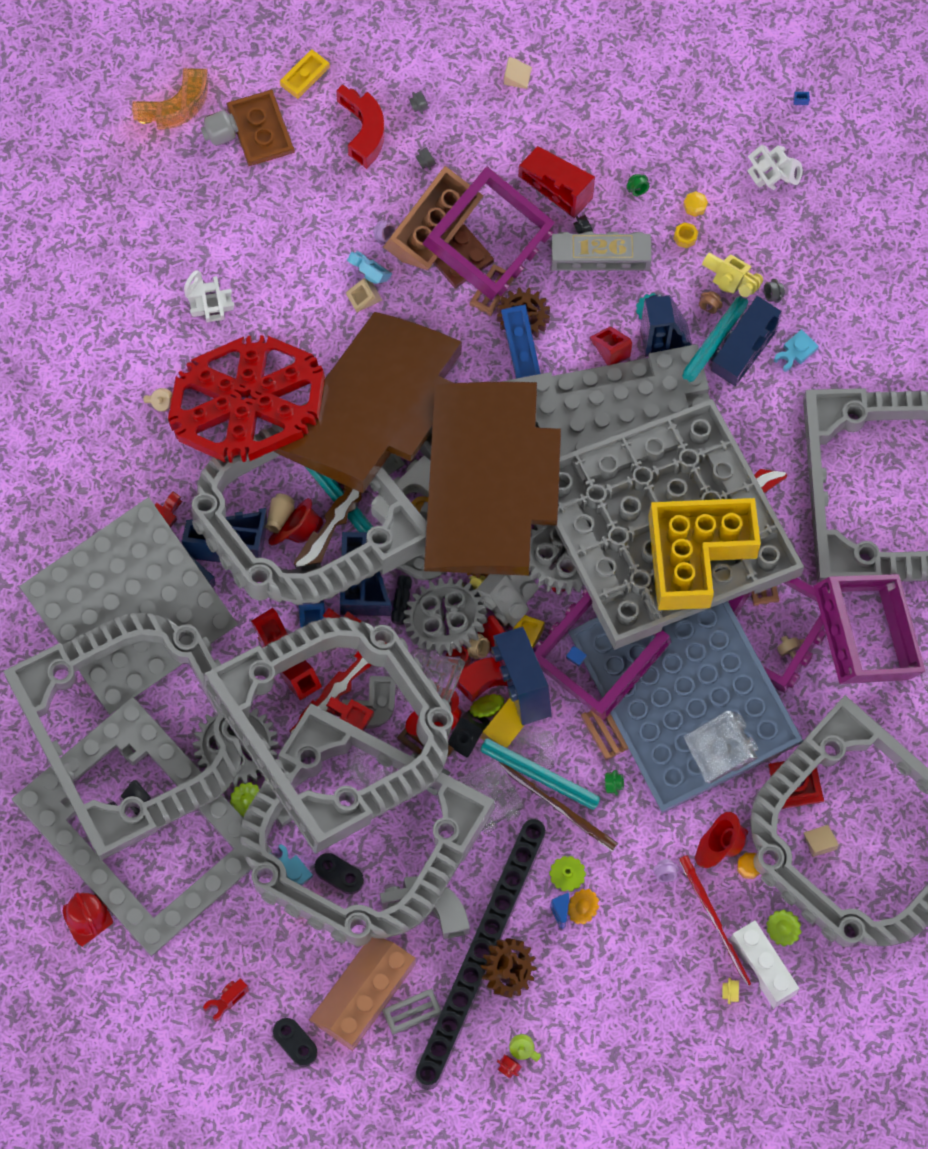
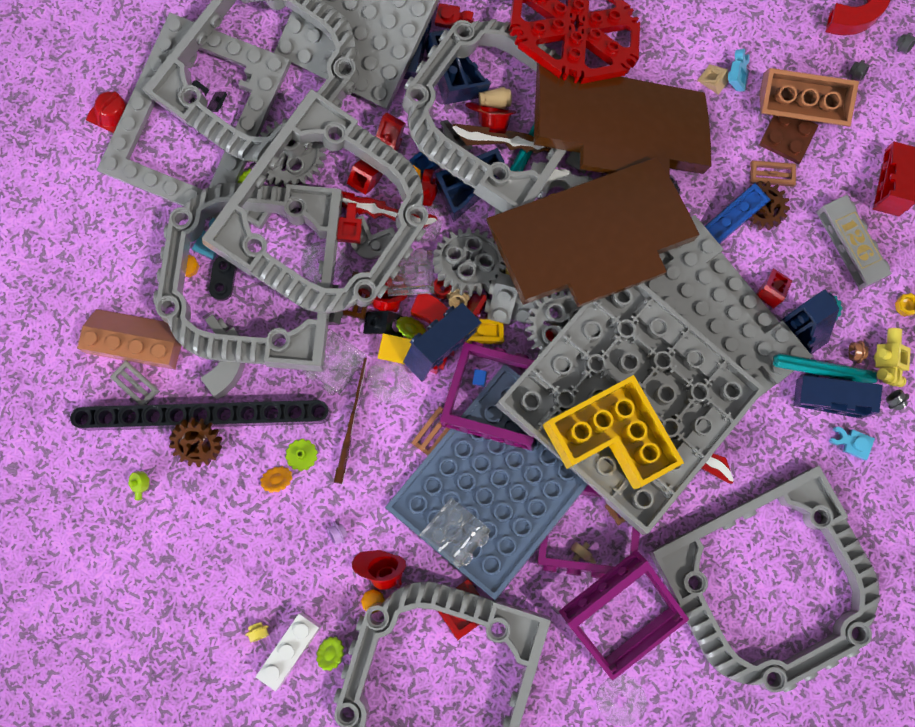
camera: 65 degrees right, 10 degrees up
(231, 995) = (87, 242): red plate -> none
(294, 1042) = (74, 306): black plate -> none
(383, 231) = (781, 62): lavender plate -> none
(400, 600) = (469, 222): black axle -> none
(461, 264) = (826, 108): magenta window -> none
(508, 1066) = (116, 478): red plate -> none
(540, 774) = (370, 395): teal axle -> none
(559, 908) = (264, 462): blue slope -> none
(582, 225) = (870, 218): black plate -> none
(614, 782) = (392, 457): green plate -> none
(689, 871) = (344, 553): red sword -> none
(820, 840) = (421, 652): tan slope -> none

